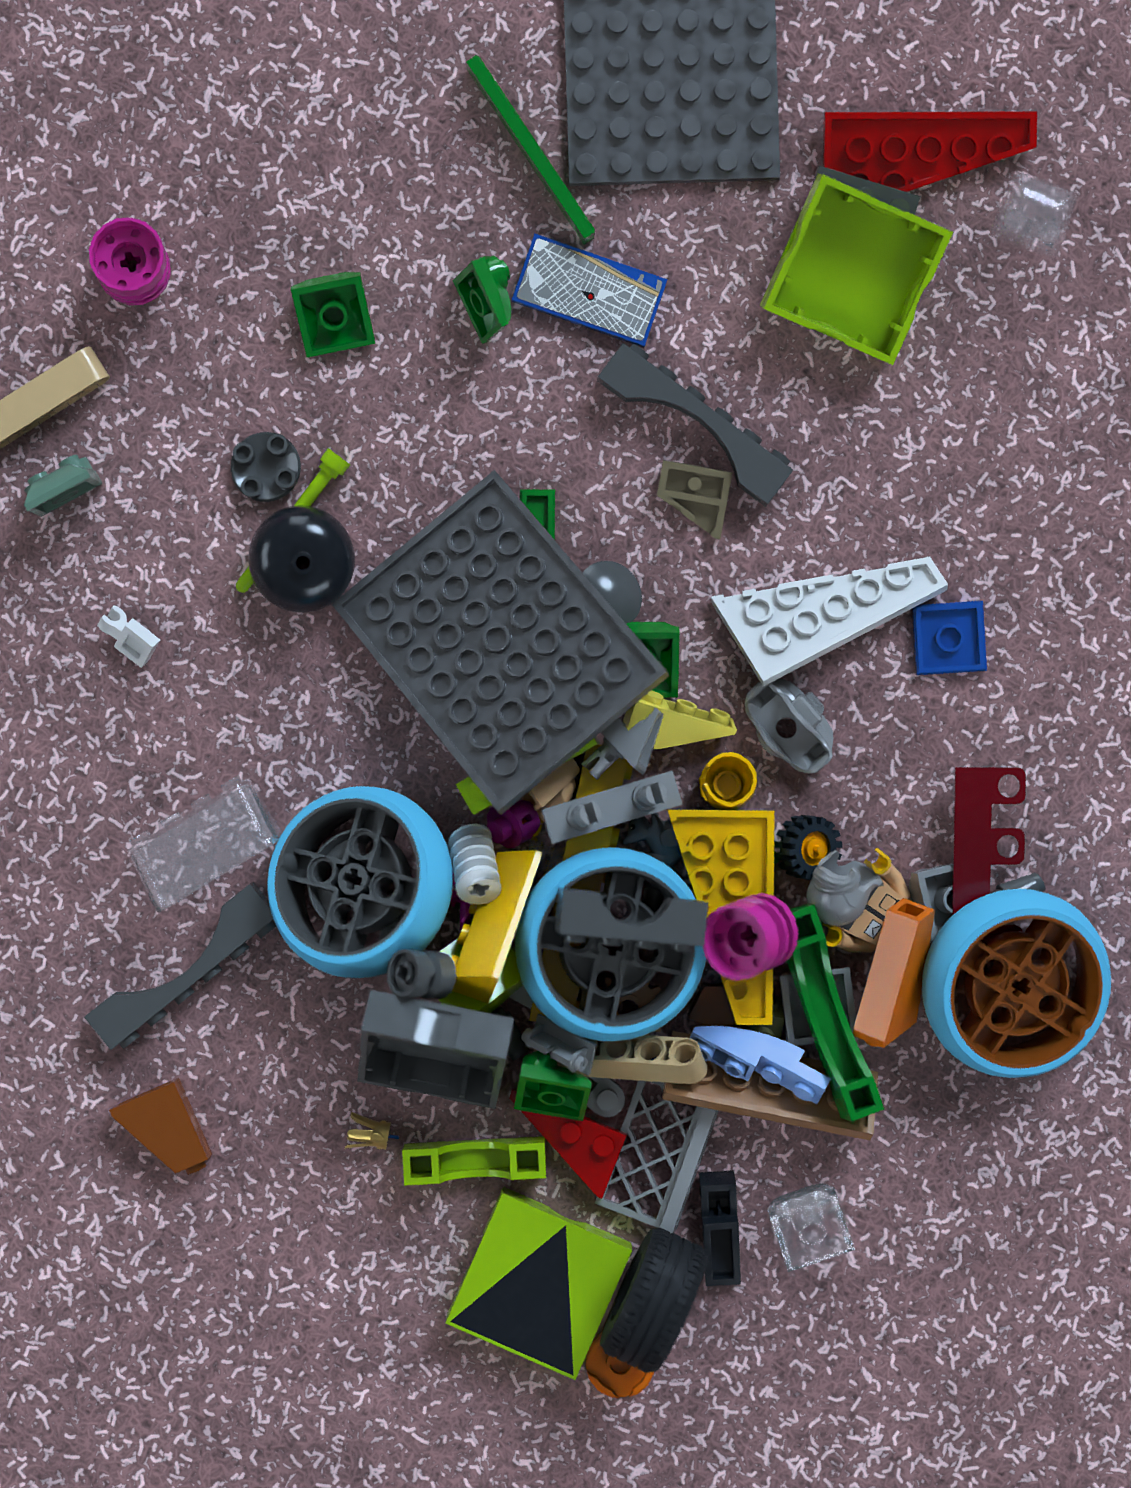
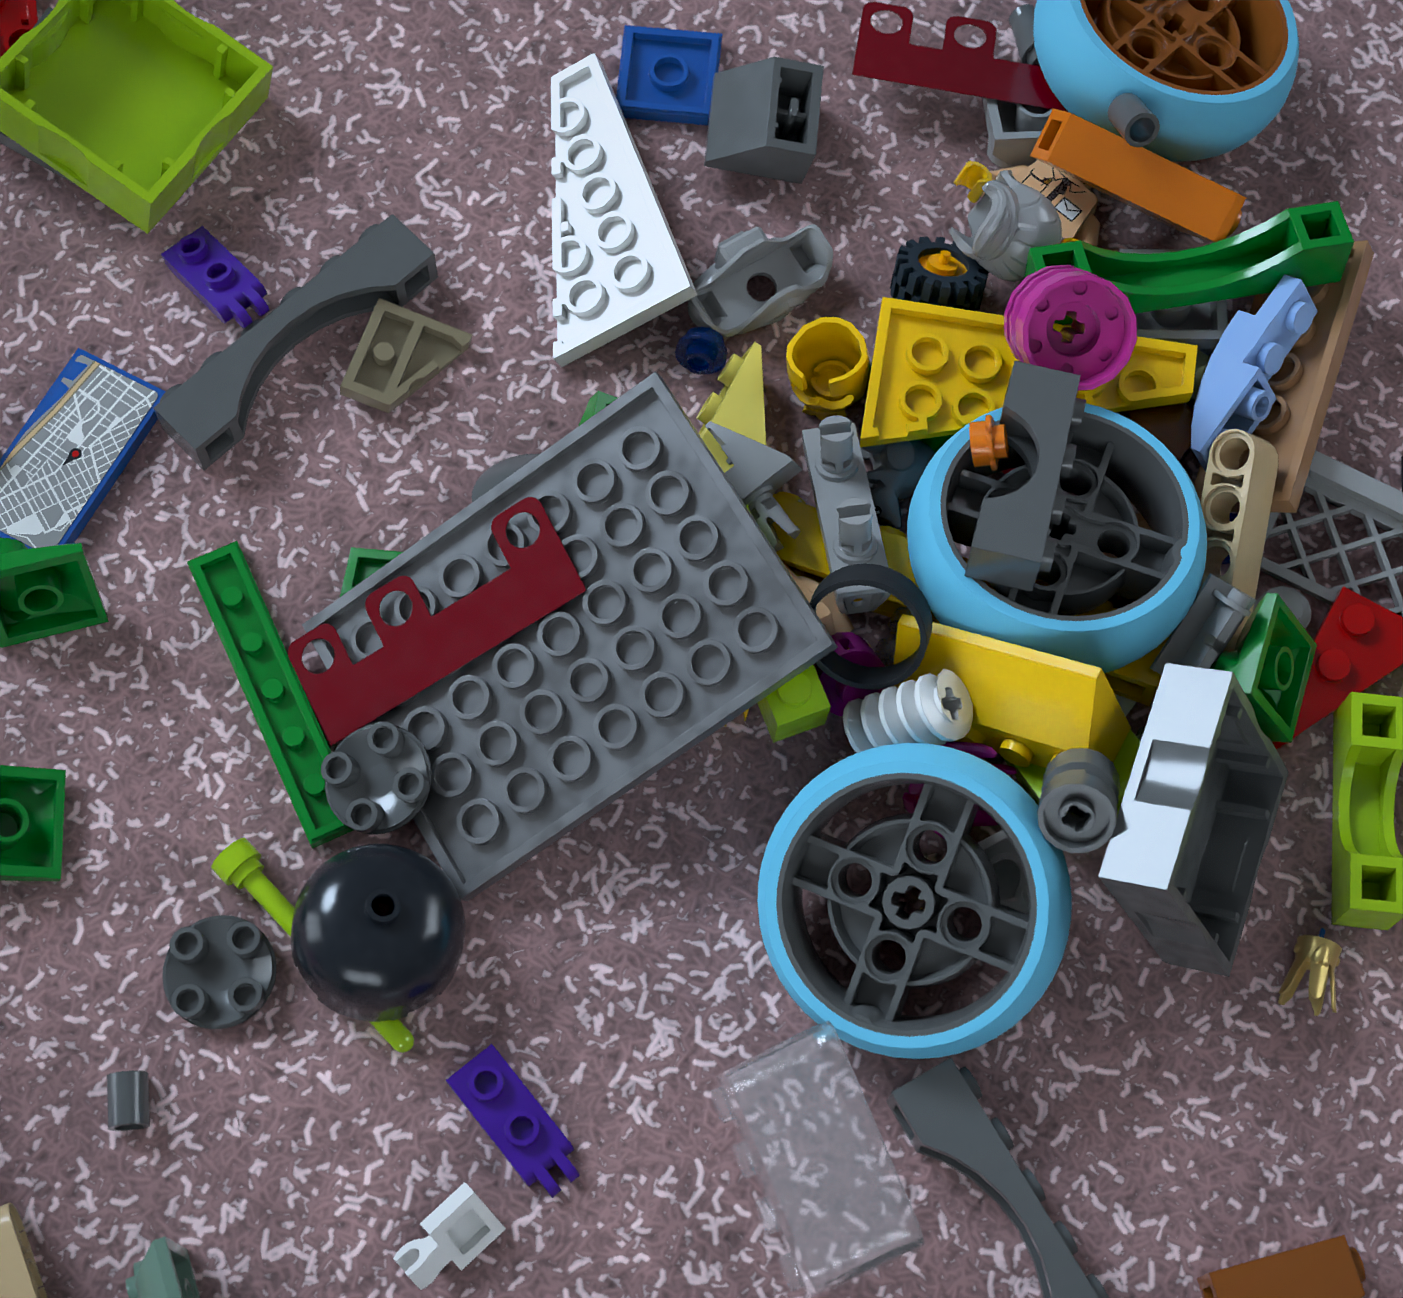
camera: 90 degrees left, 20 degrees down
(179, 430) = (128, 1100): none -> dark grey hinge
(205, 660) = (513, 1119): none -> dark purple hinge
(397, 539) = (377, 778): none -> dark grey dish
(450, 460) = (269, 685): none -> green tile
(483, 558) = (435, 646): none -> dark red piece
(544, 837) = (895, 584): none -> black tyre
(651, 892) = (988, 442): none -> orange plate
(731, 694) = (701, 351): none -> clear blue plate
(732, 359) = (216, 277): none -> dark purple hinge
(914, 710) = (765, 119): none -> dark grey slope
(920, 964) = (1133, 120): none -> dark grey hinge

